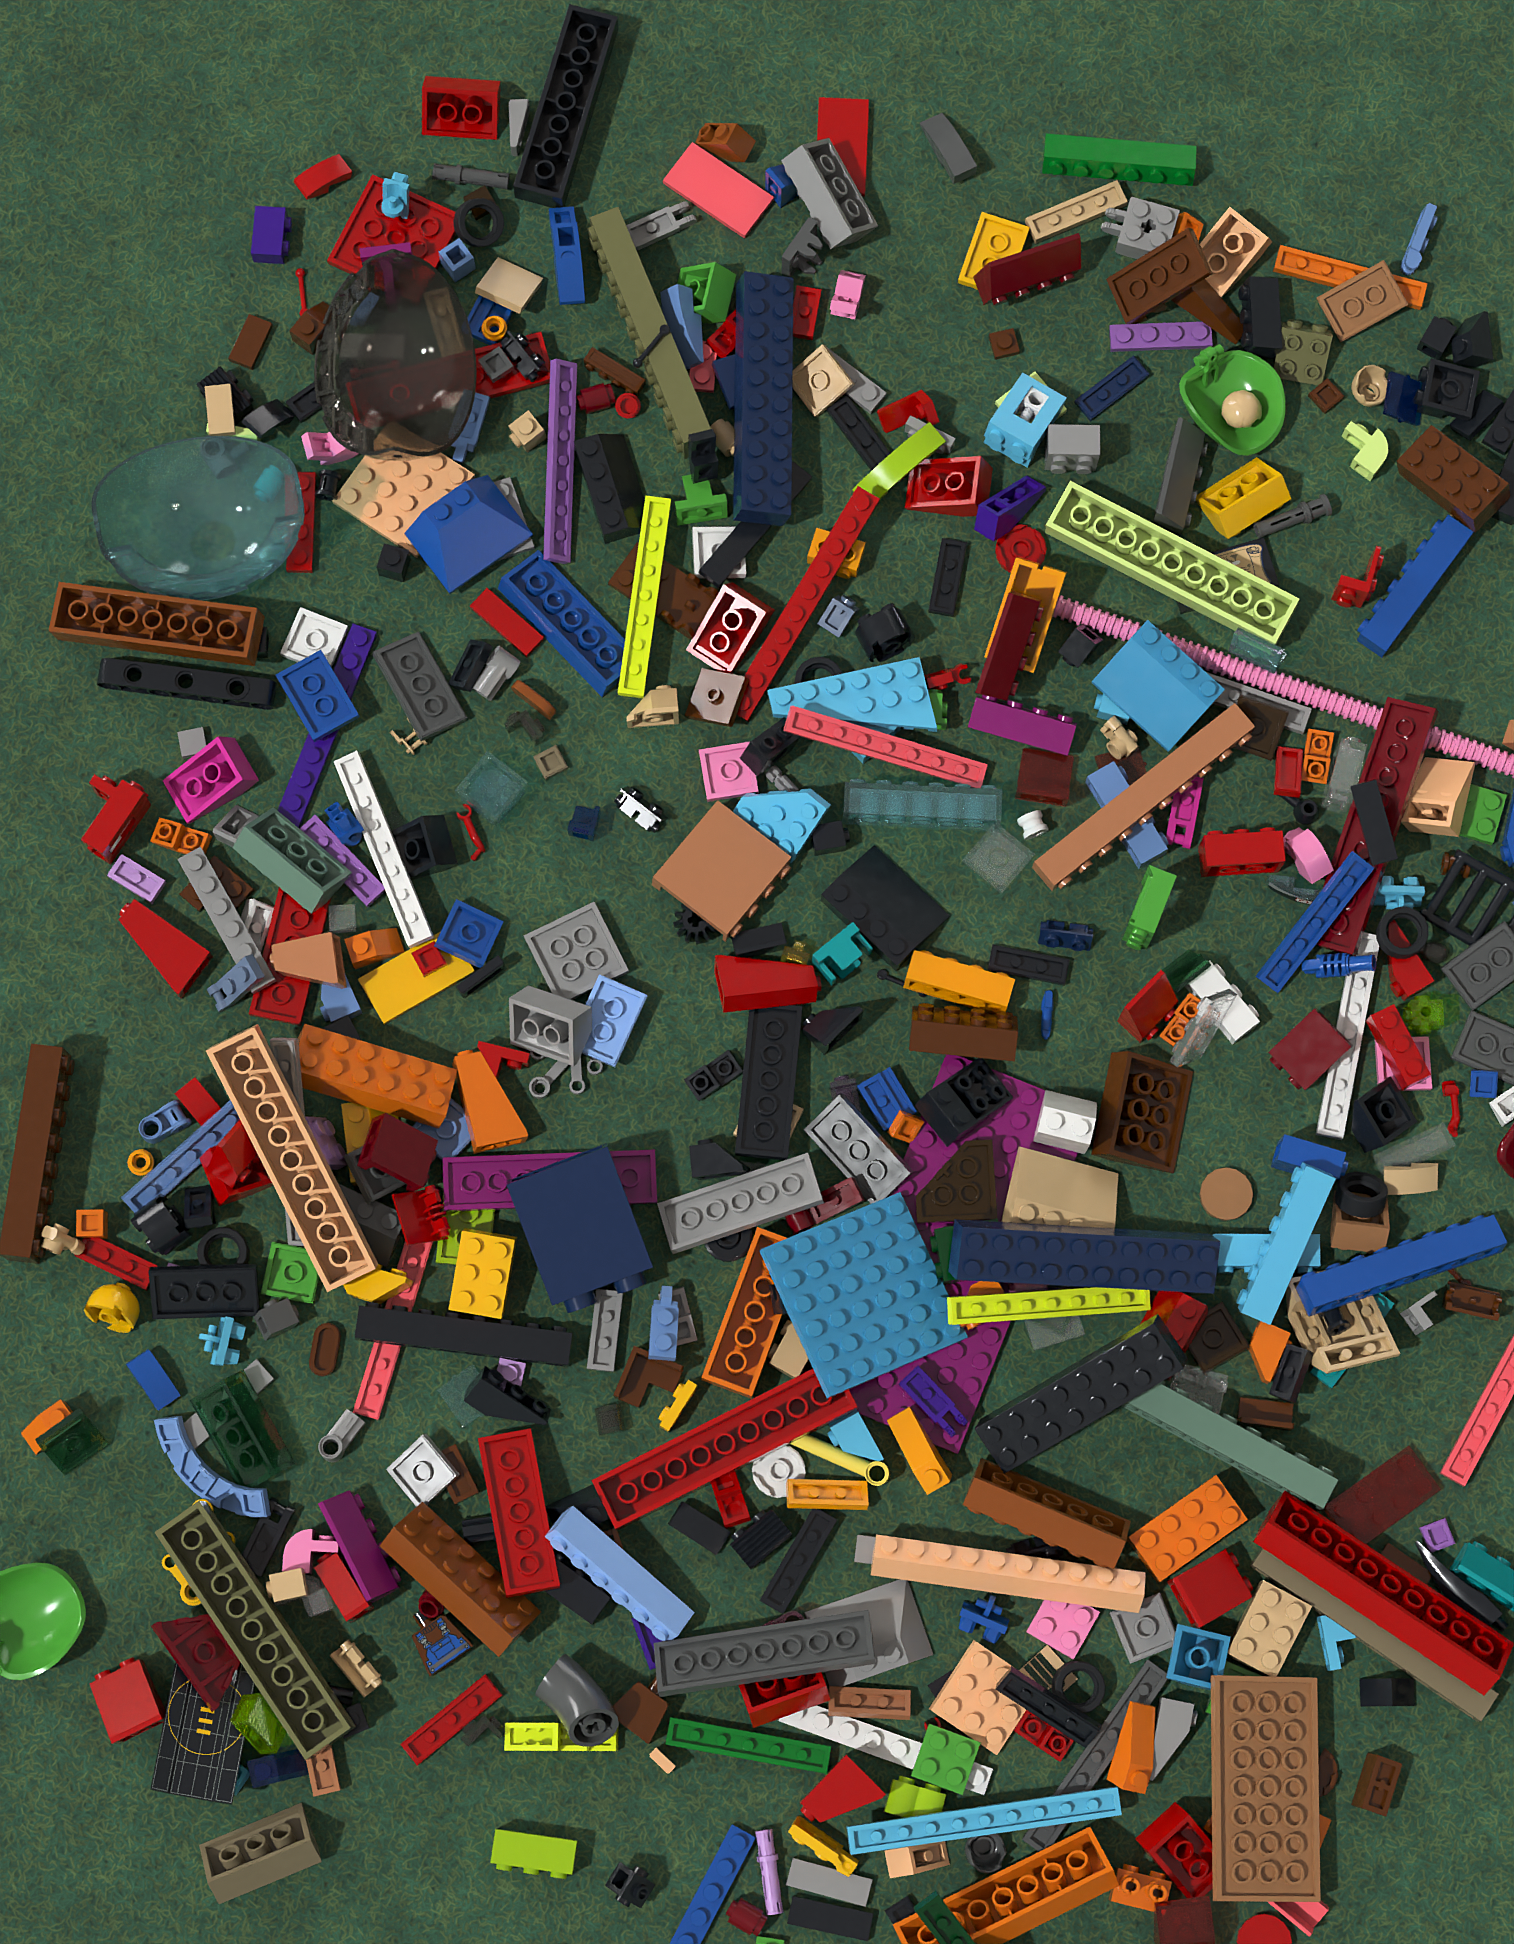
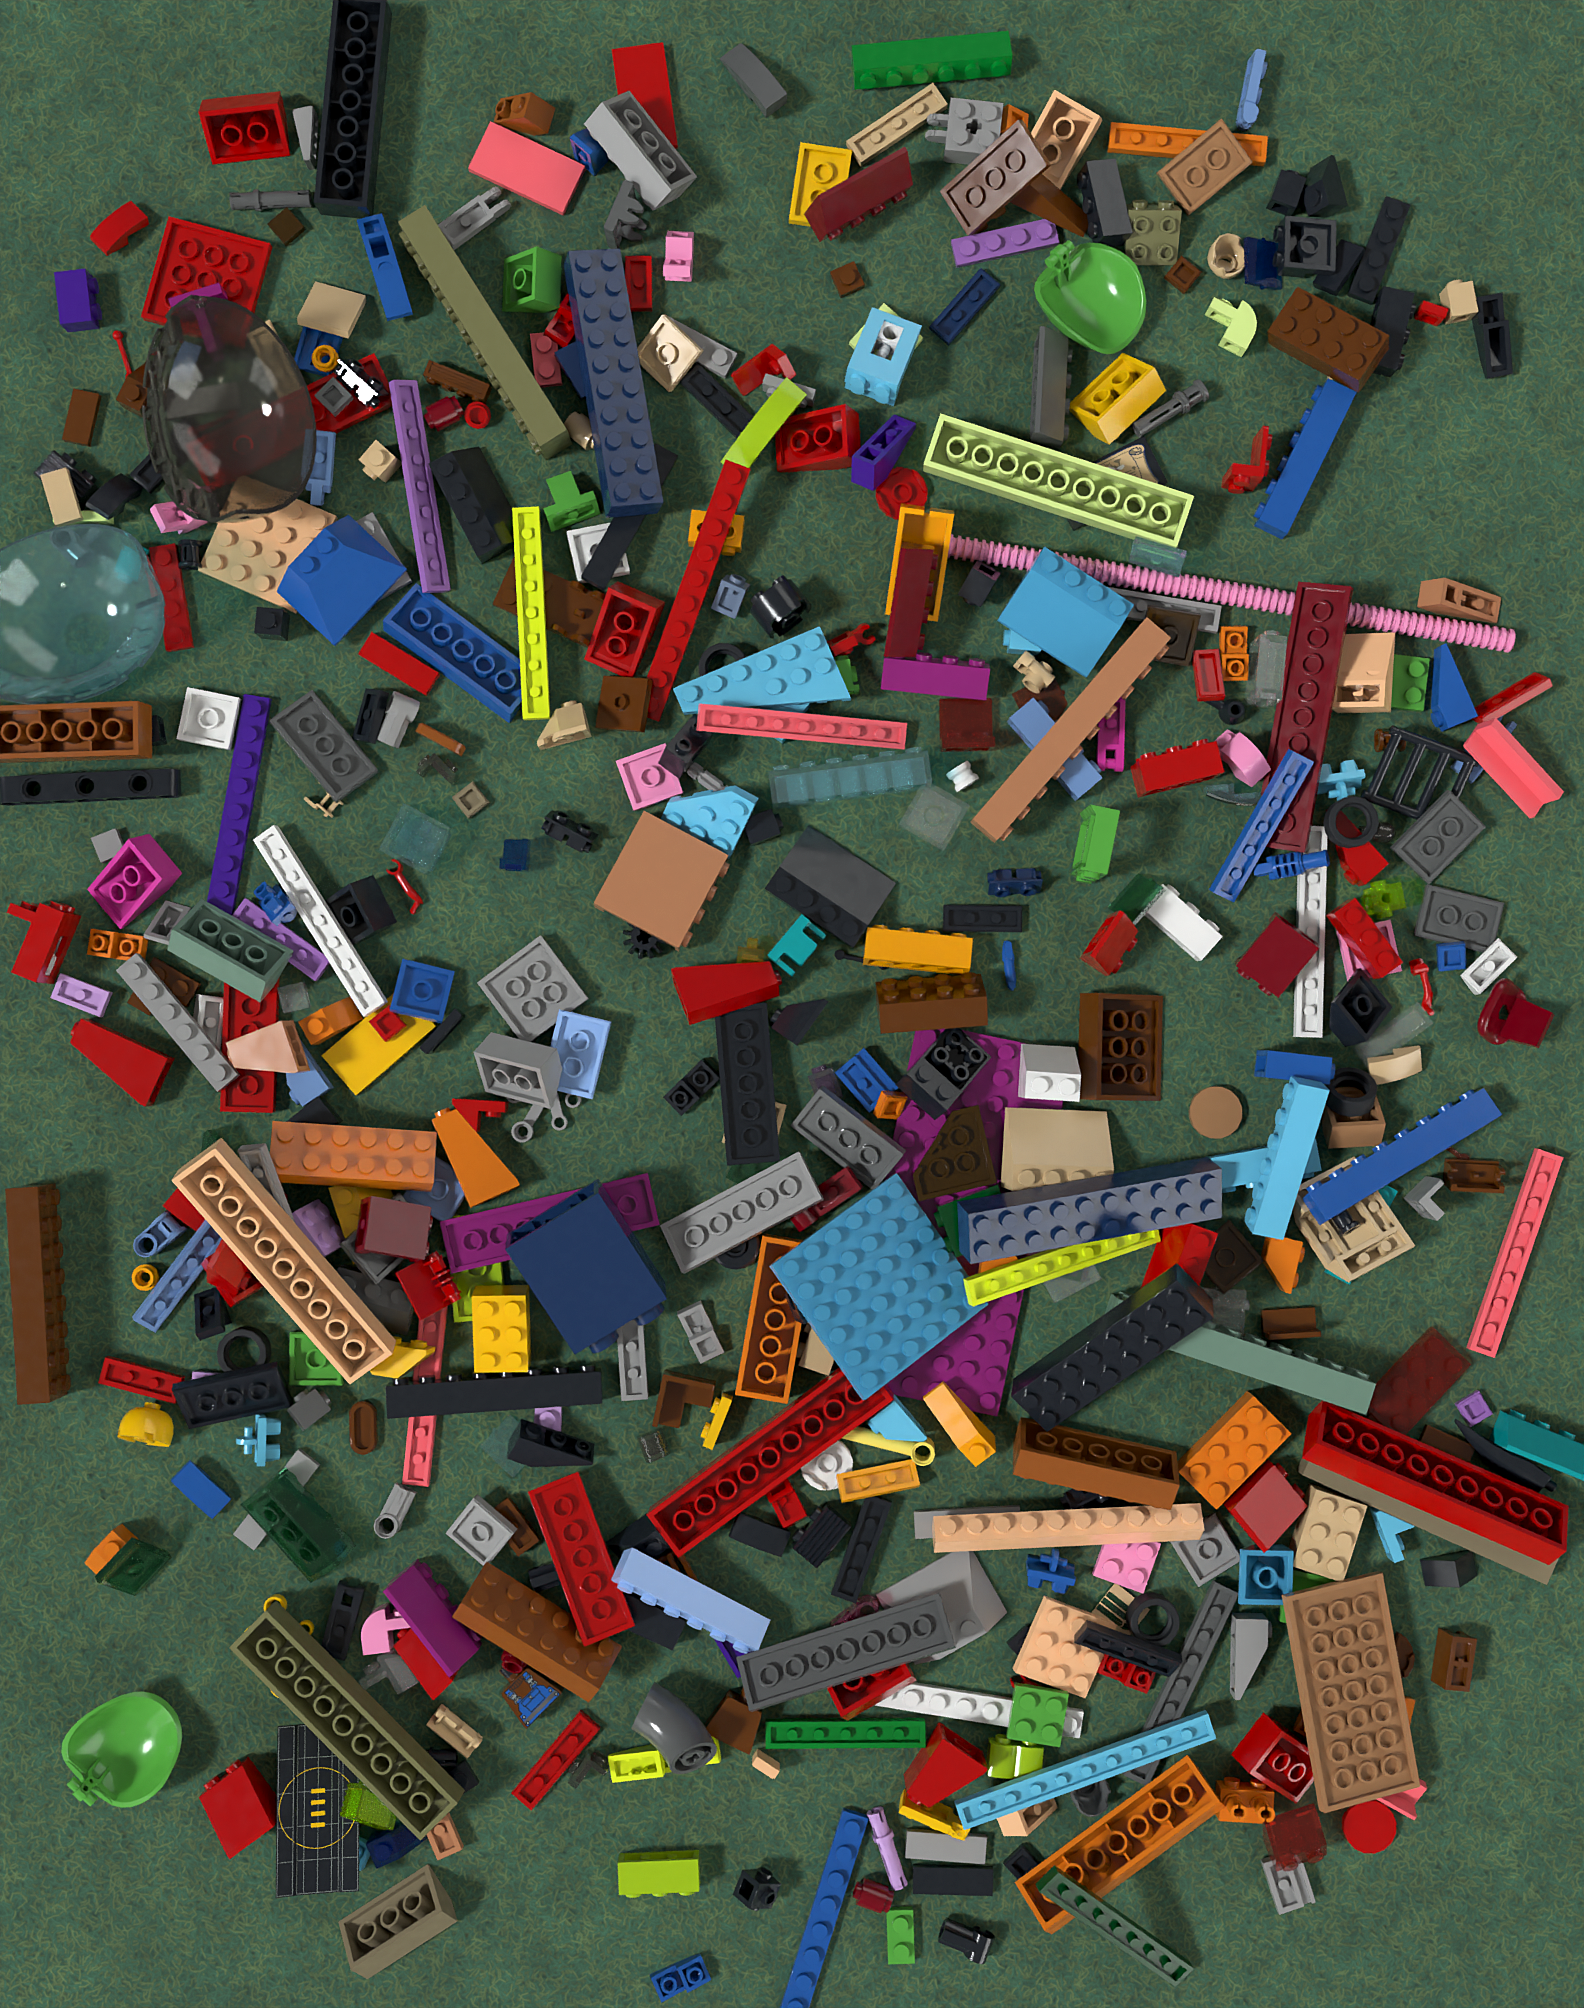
camera: 10 degrees left, 10 degrees up
(57, 1240) = (77, 1372): tan plate -> none
(92, 1223) = (108, 1349): orange panel -> none
(161, 1225) = (175, 1340): black brick -> none
(200, 1654) = (297, 1754): dark red wing -> none
(202, 1479) = (270, 1577): medium blue tile -> none
(236, 983) = (200, 1085): sand blue plate -> none
(287, 1585) = (370, 1672): tan brick -> none
(317, 696) = (221, 777): blue plate -> none
(396, 196) = (194, 235): medium azure hips -> none
(457, 260) = (272, 292): medium blue brick -> none
(497, 217) = (301, 233): black tyre -> none
(664, 331) = (497, 330): black hinge -> none
(664, 1327) = (689, 1350): medium blue hinge -> none
(683, 323) = (517, 319): medium blue slope -> none
(702, 456) = (562, 456): black slope -> none
(714, 1161) = (708, 1174): black slope -> none
(759, 941) = (712, 944): black panel -> none
(869, 1703) = (954, 1672): nougat plate -> none
(931, 1399) = (962, 1371): dark purple hinge -> none
(947, 577) = (832, 535): black tile -> none
(1072, 448) = (936, 378): light grey brick -> none
(1134, 1750) = (1217, 1677): orange slope -> none
(1184, 1013) = (1148, 949): orange slope -> none
(1202, 1027) = (1167, 957): clear plate -> none
(1241, 409) = (1100, 305): tan hair -> none
(1291, 1373) = (1310, 1282): black panel -> none
(1373, 822) = (1307, 716): black slope -> none

